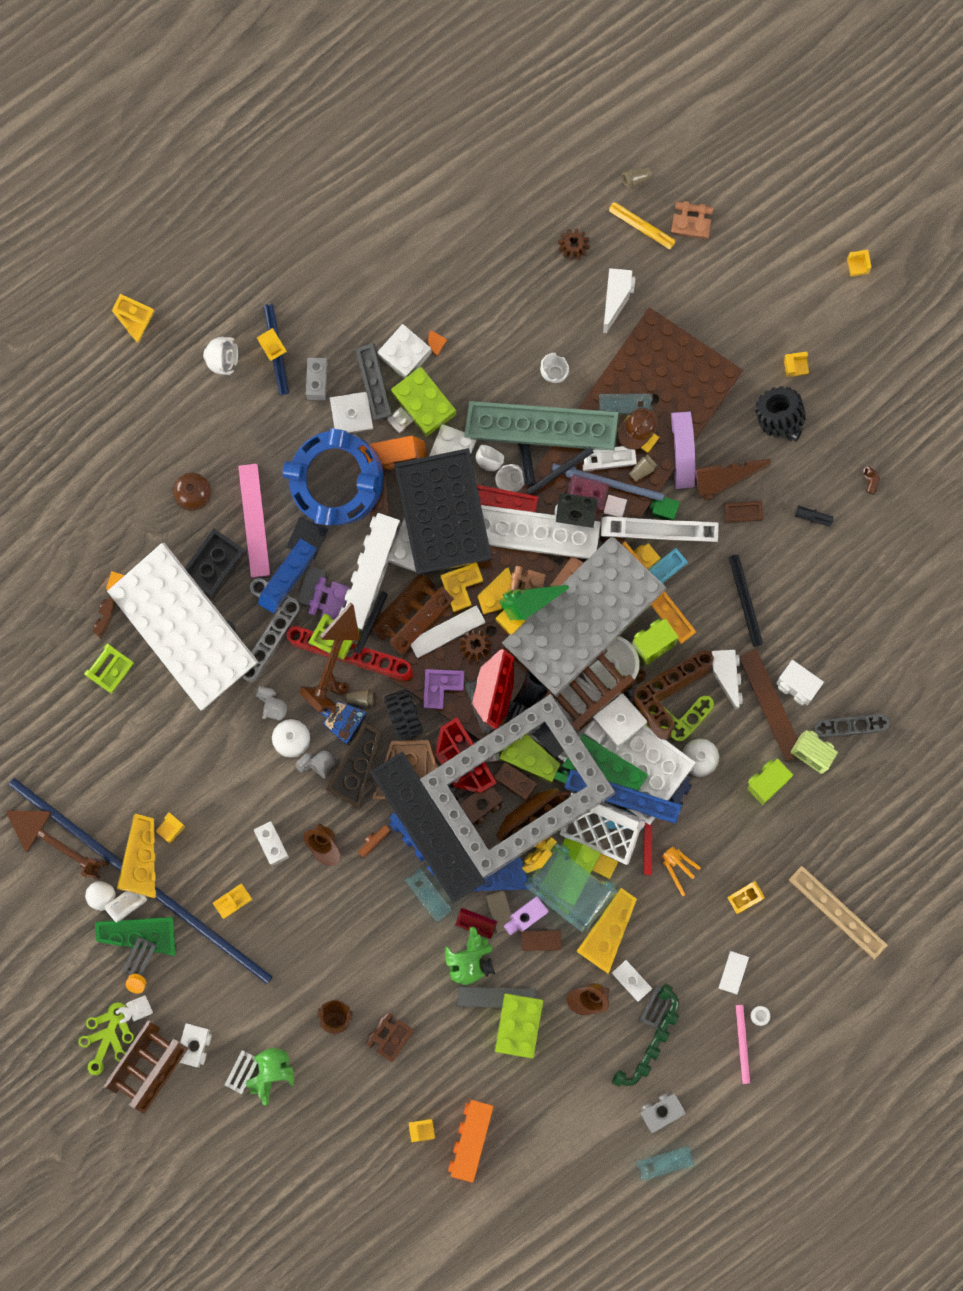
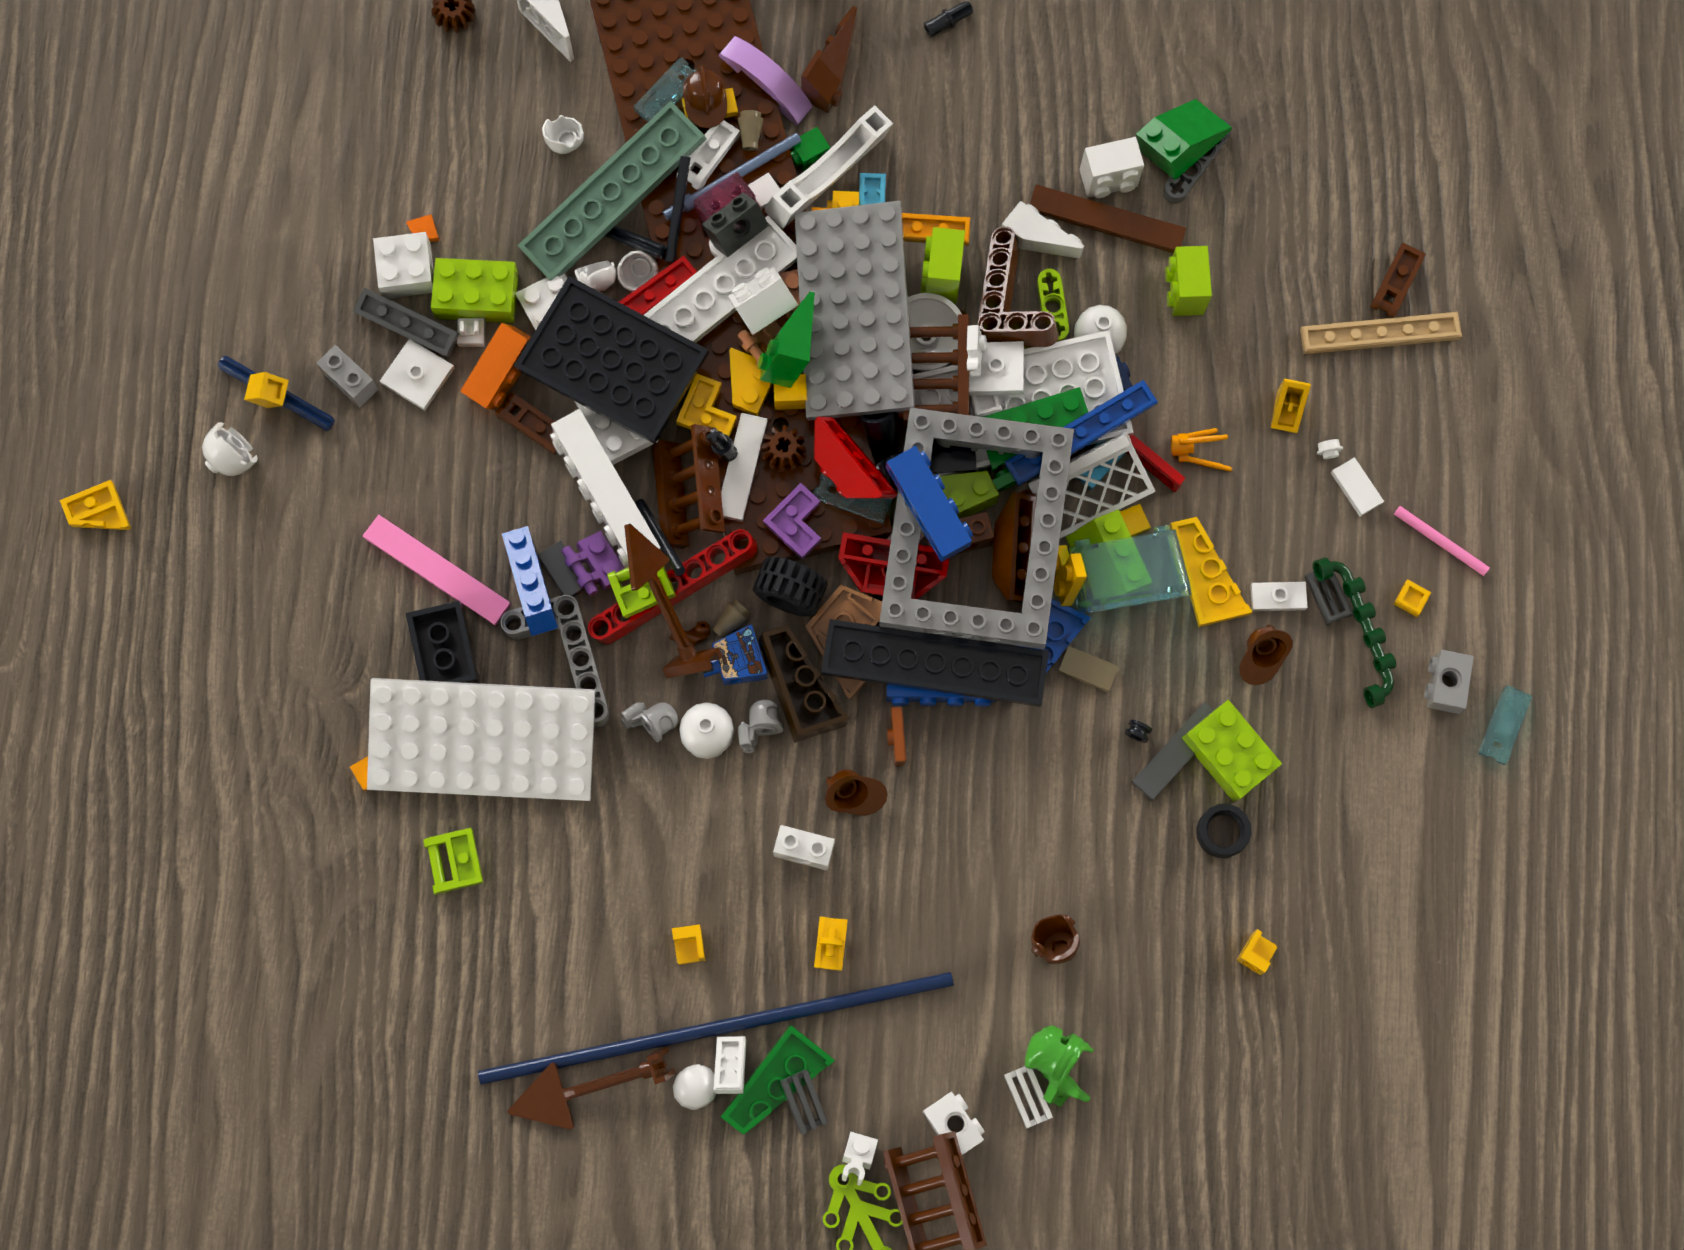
camera: 55 degrees left, 5 degrees down
(106, 610) = (389, 811): reddish brown slope -> none
(136, 983) = (829, 1130): light orange tile -> none
(138, 863) = (696, 1010): yellow wing -> none
(192, 491) = (344, 608): reddish brown cylinder -> none
(308, 532) = (500, 522): black piece -> none
(369, 482) = (501, 485): blue piece -> none
(394, 1041) = (1134, 900): reddish brown plate -> none
(428, 896) = (1006, 729): clear light blue plate -> none
(445, 612) = (722, 445): none -> black axle
(466, 964) = (1116, 750): bright green piece -> none
(471, 1141) = (1315, 908): orange brick -> none
(474, 1043) = (1229, 810): none -> black tyre
(478, 816) = (960, 575): reddish brown brick -> none
(483, 925) = (1080, 703): dark red plate -> none
(502, 750) = (929, 504): none -> blue brick
(532, 910) = (1119, 640): lavender torso -> none
(541, 940) = (1156, 653): reddish brown tile -> none
(544, 563) = (762, 299): none -> white brick
(618, 699) = (975, 346): none -> white plate
(695, 1054) = (1412, 598): none -> yellow tile
(741, 939) = (1329, 448): none -> white plate
(743, 512) = (881, 81): reddish brown tile -> none
(745, 600) = (976, 153): black axle -> none
(760, 1016) = (1425, 498): white tile -> none
(814, 751) = (1195, 214): yellowish green brick -> none
(856, 706) = (1181, 137): none -> green slope
(878, 896) = (1398, 279): none -> reddish brown plate

